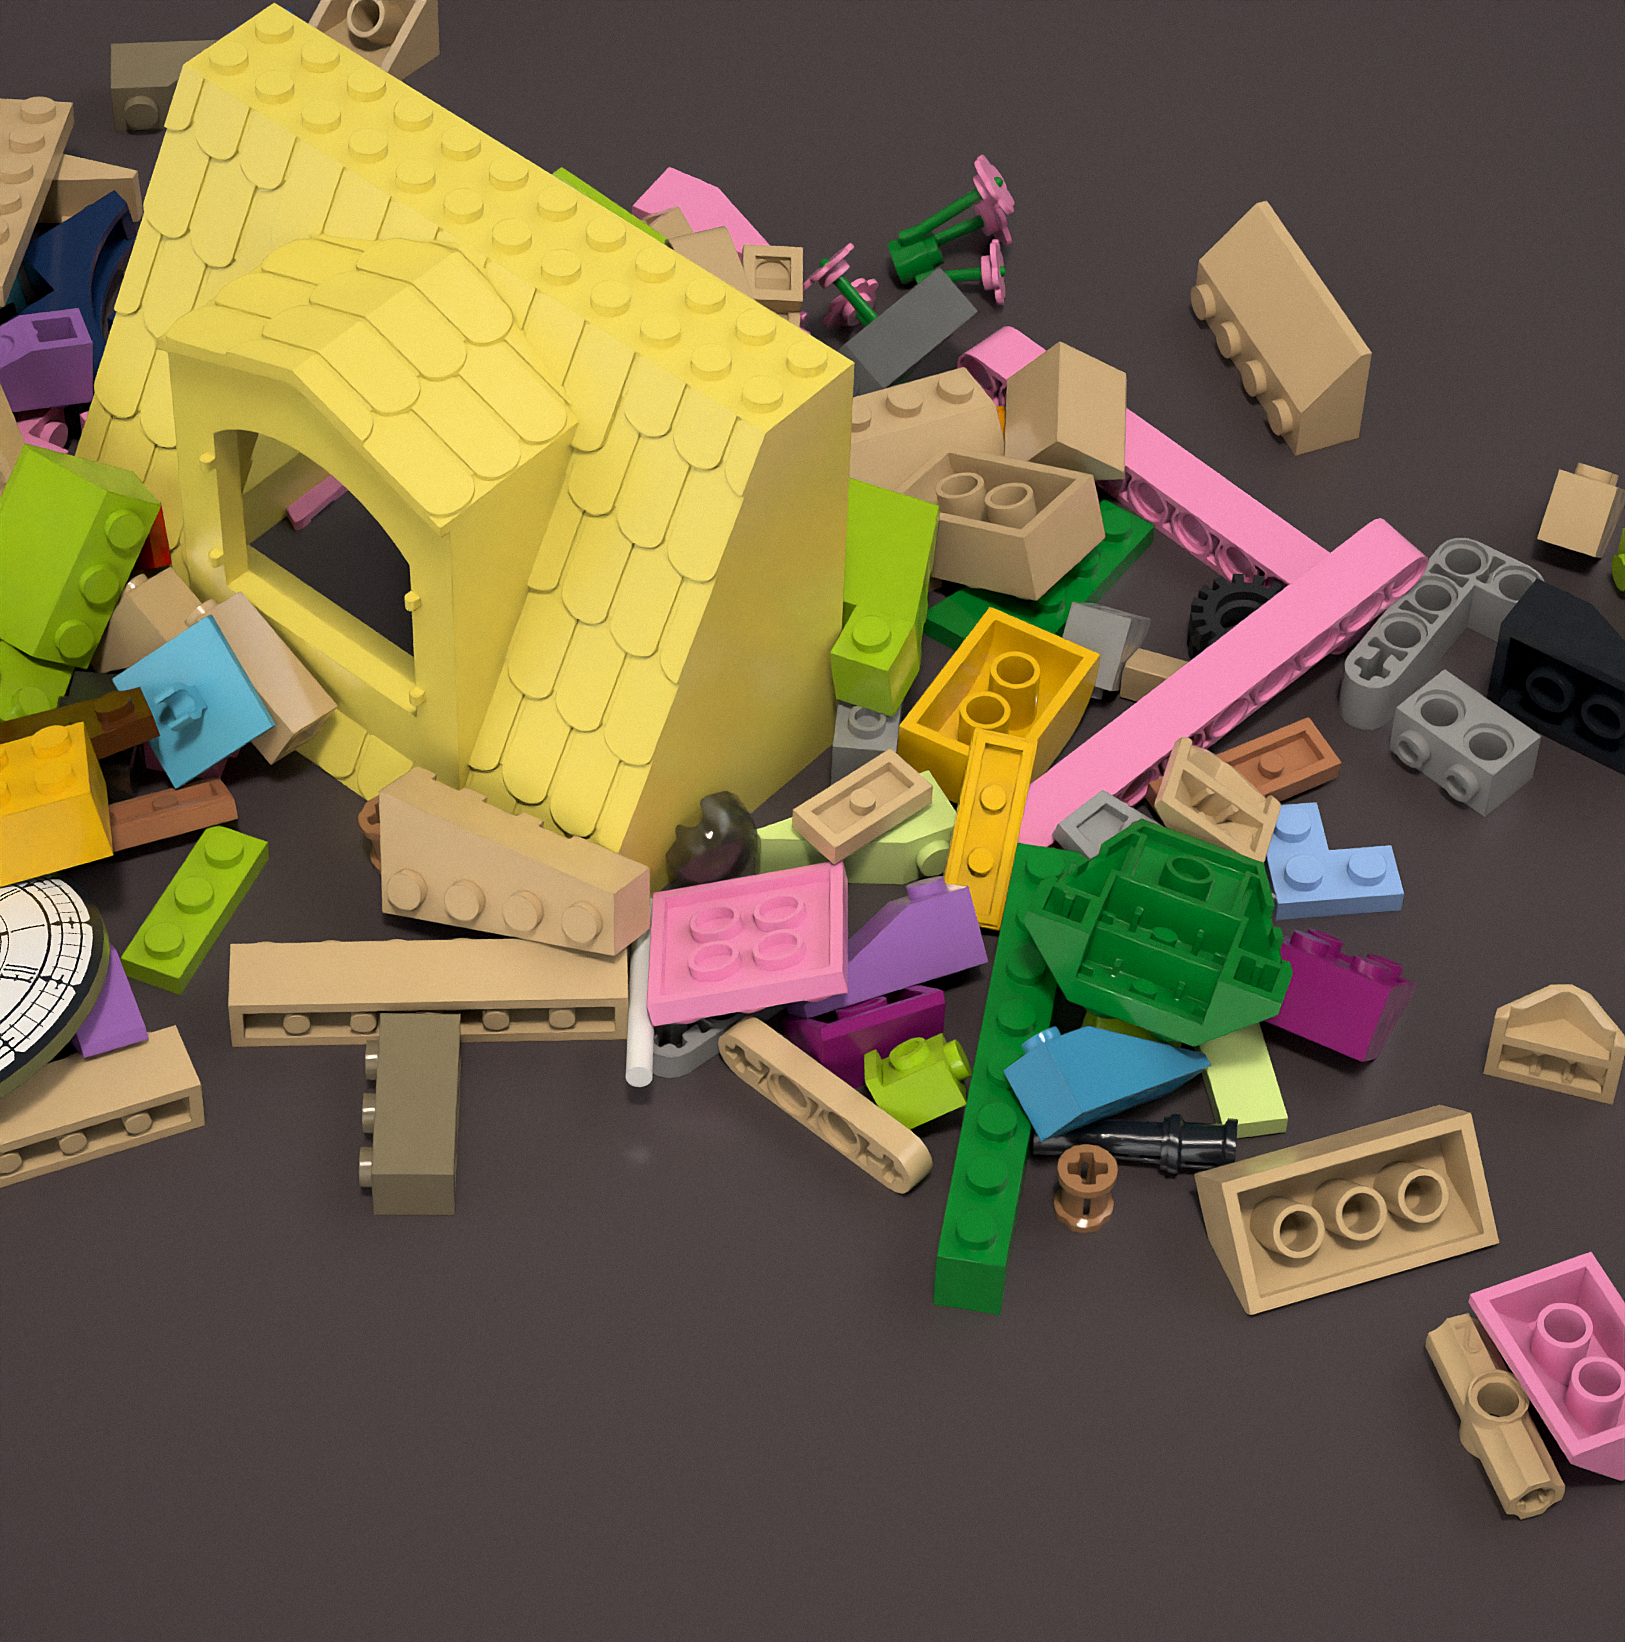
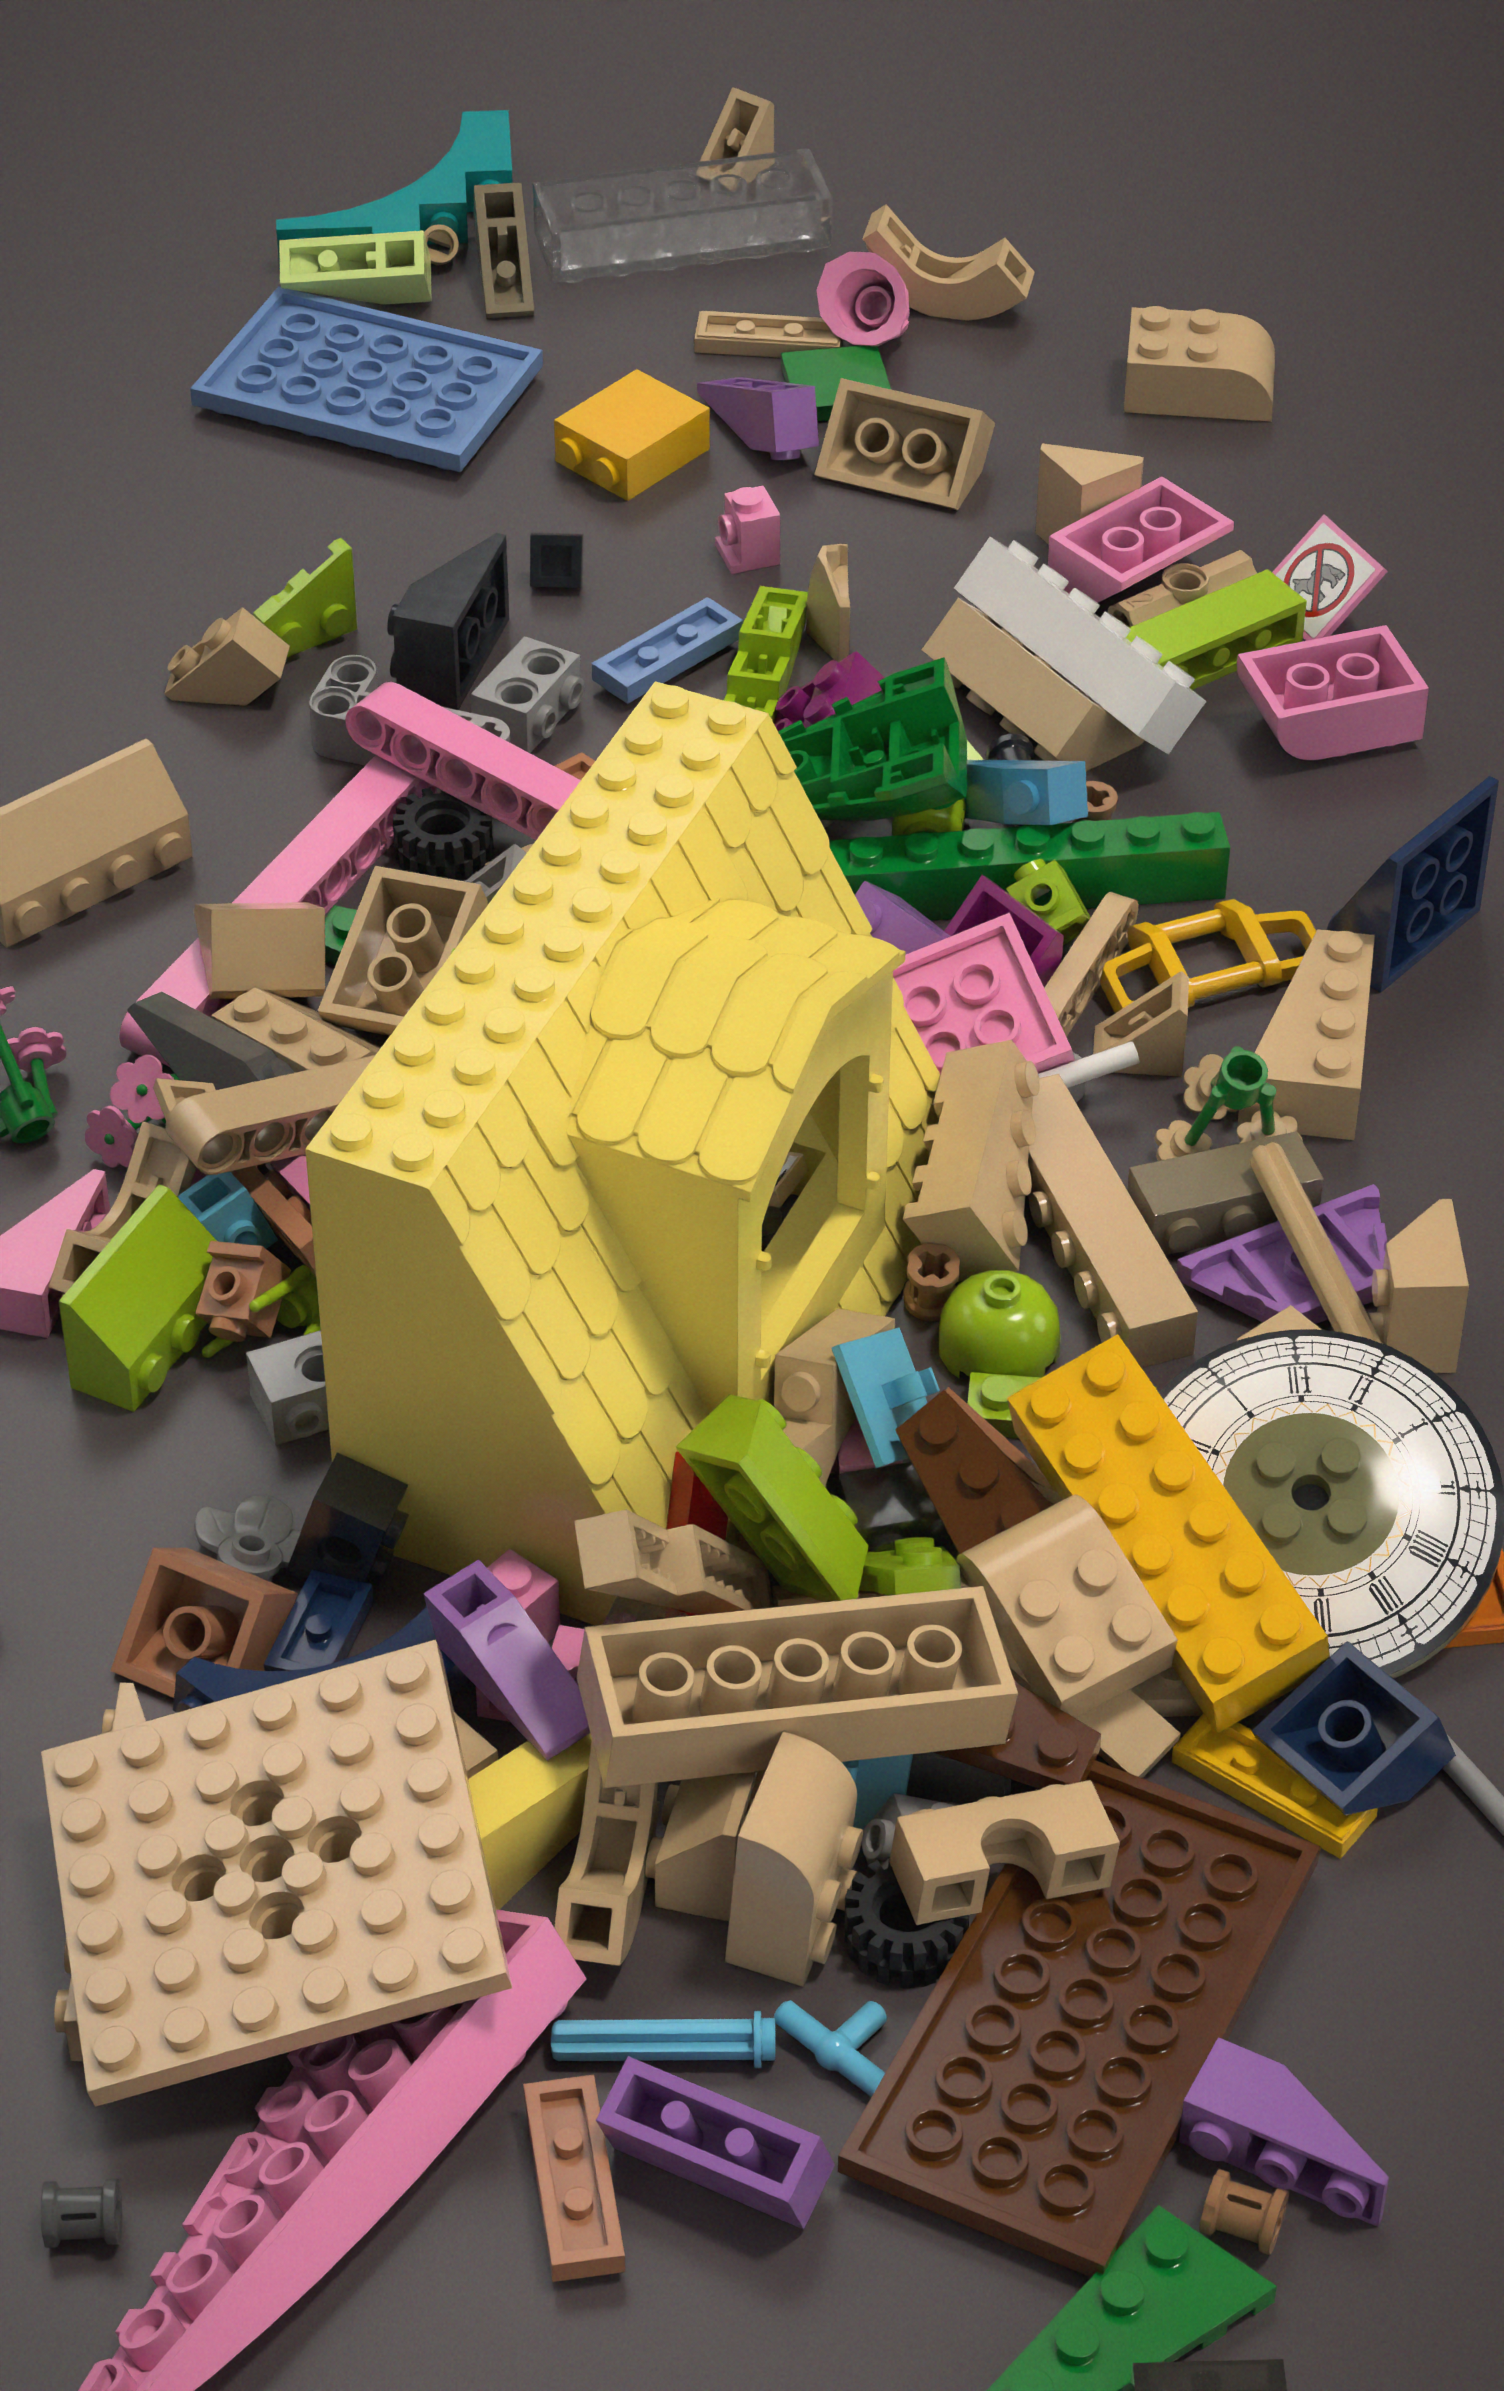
camera: 105 degrees left, 5 degrees down
(163, 1202) = (1423, 1290): none -> tan slope
(246, 1132) = (1310, 1242): none -> tan axle
(291, 1158) = (1263, 1275): none -> medium lavender wing
(313, 880) = (999, 1326): none -> lime cylinder
(515, 1117) = (1220, 1088): none -> plant
(618, 1273) = (1319, 1037): none -> tan wedge
(691, 1133) = (1154, 1025): none -> tan slope
(798, 1422) = (1424, 887): none -> dark blue slope
(831, 1270) = (1235, 920): none -> yellow bar
(1224, 1483) = (1337, 693): none -> bright pink brick
(1375, 1230) = (1081, 645): none -> white brick
(1401, 1407) = (1234, 620): none -> lime brick
(1462, 964) = (767, 649): none -> lime slope
(1476, 1564) = (1330, 575): none -> piece
(1526, 891) = (667, 650): none -> medium blue plate

